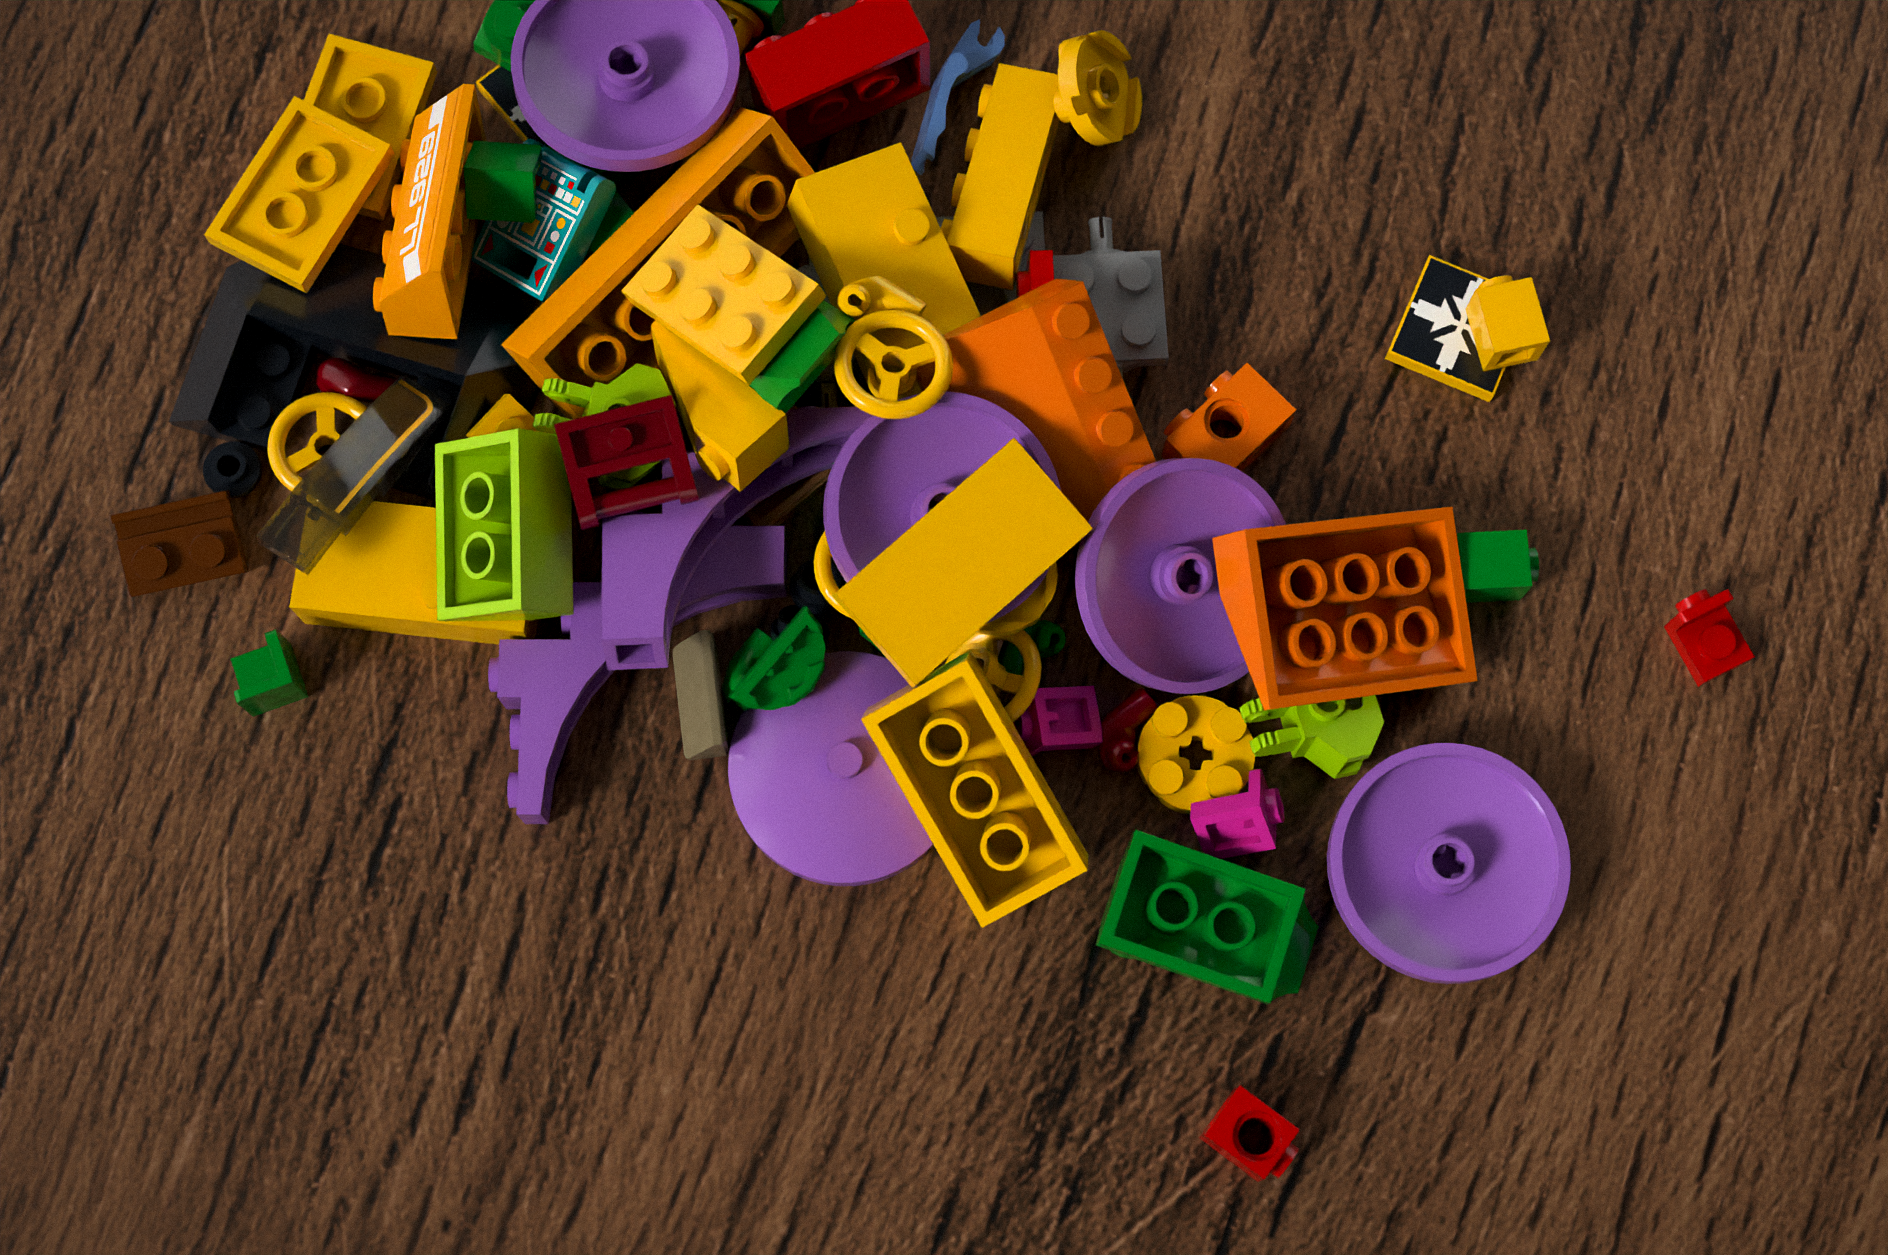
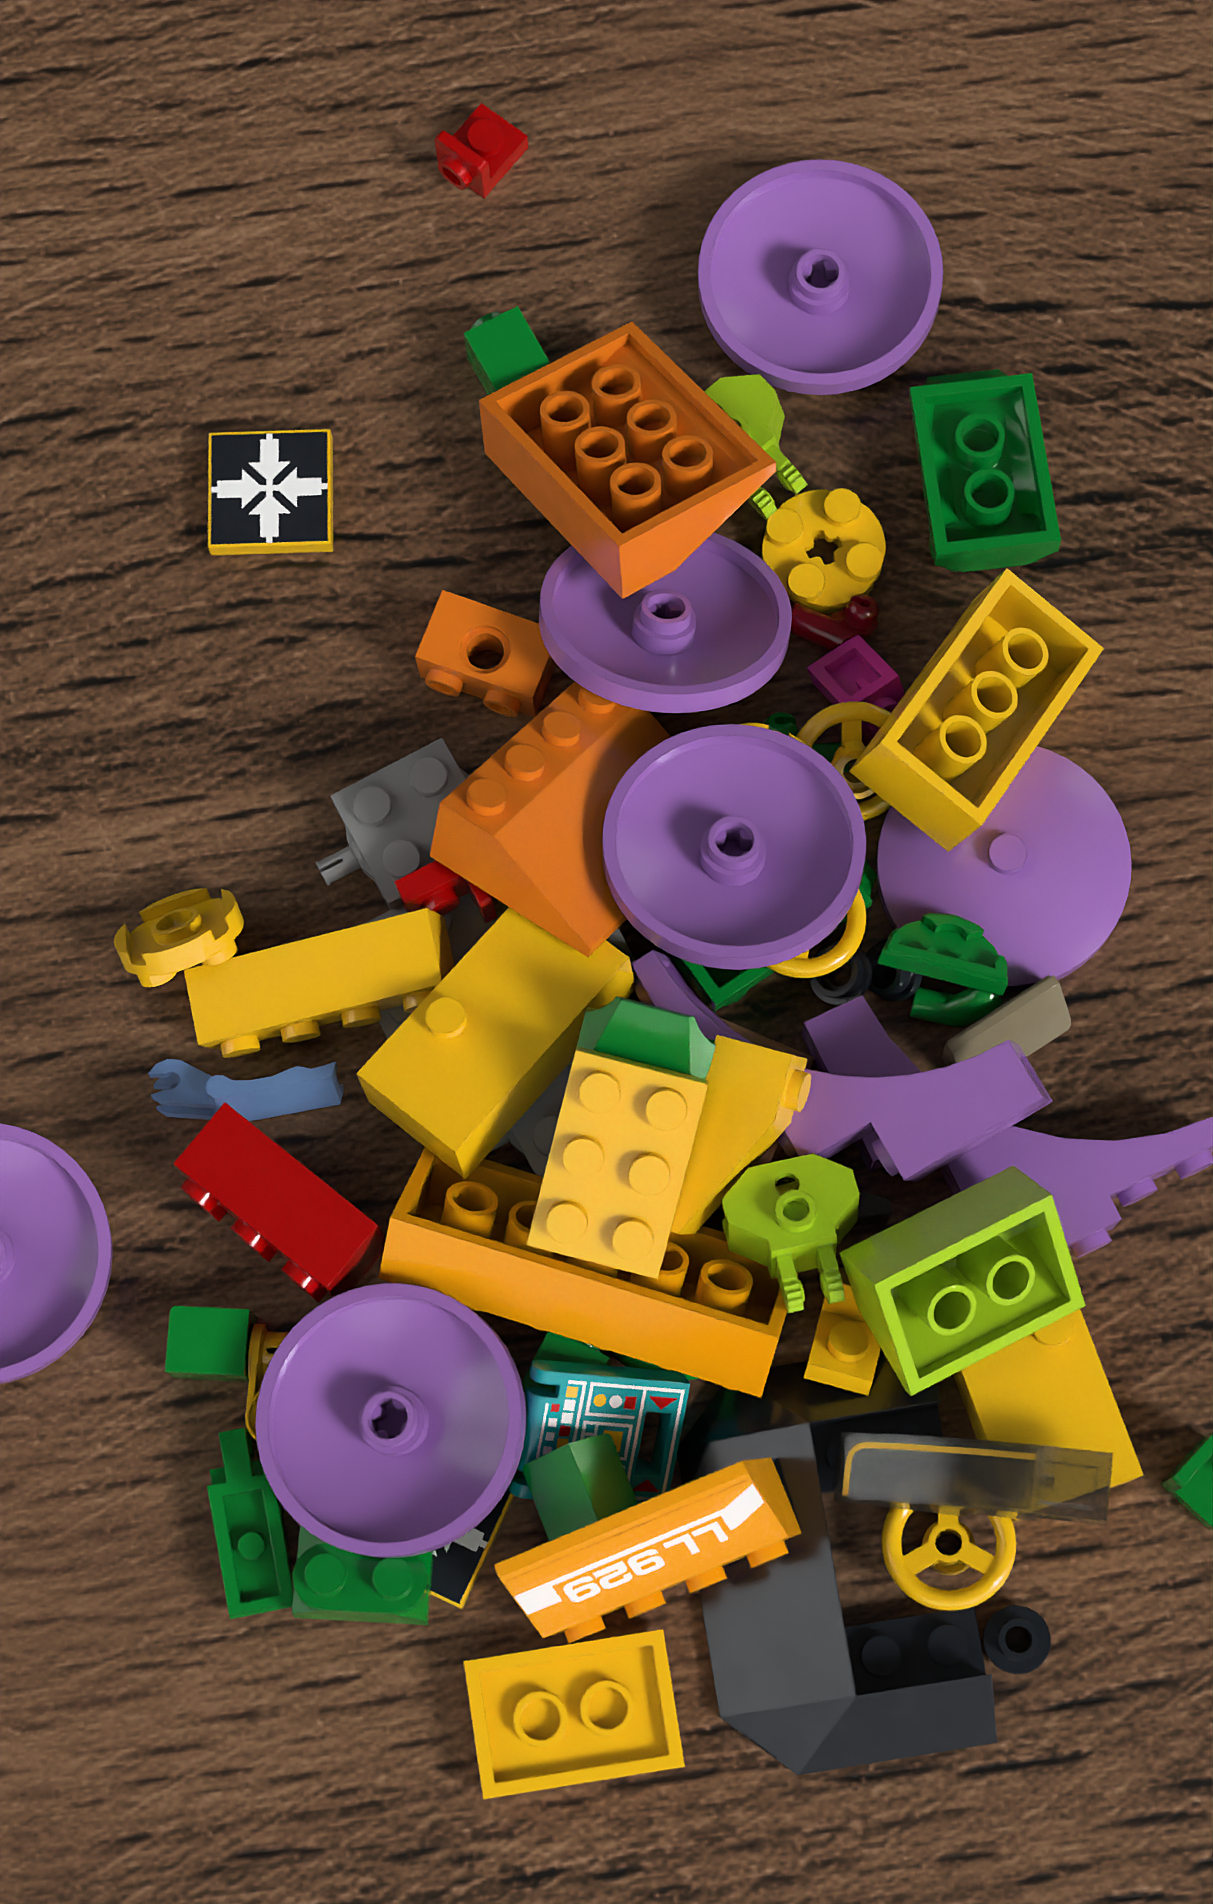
camera: 110 degrees left, 0 degrees up
(179, 543) = (1123, 1650): reddish brown plate -> none
(300, 194) = (691, 1716): yellow plate -> none
(345, 378) = (863, 1555): dark red arm -> none
(619, 442) = (829, 1186): dark red plate -> none
(875, 295) = (544, 1006): yellow arm -> none
(889, 386) = (634, 964): yellow piece -> none
(962, 562) = (780, 796): yellow tile -> none
(1223, 1135) = (1151, 369): red brick -> none
(1239, 821) = (877, 475): dark pink bracket -> none
(1507, 322) = (256, 436): yellow brick -> none

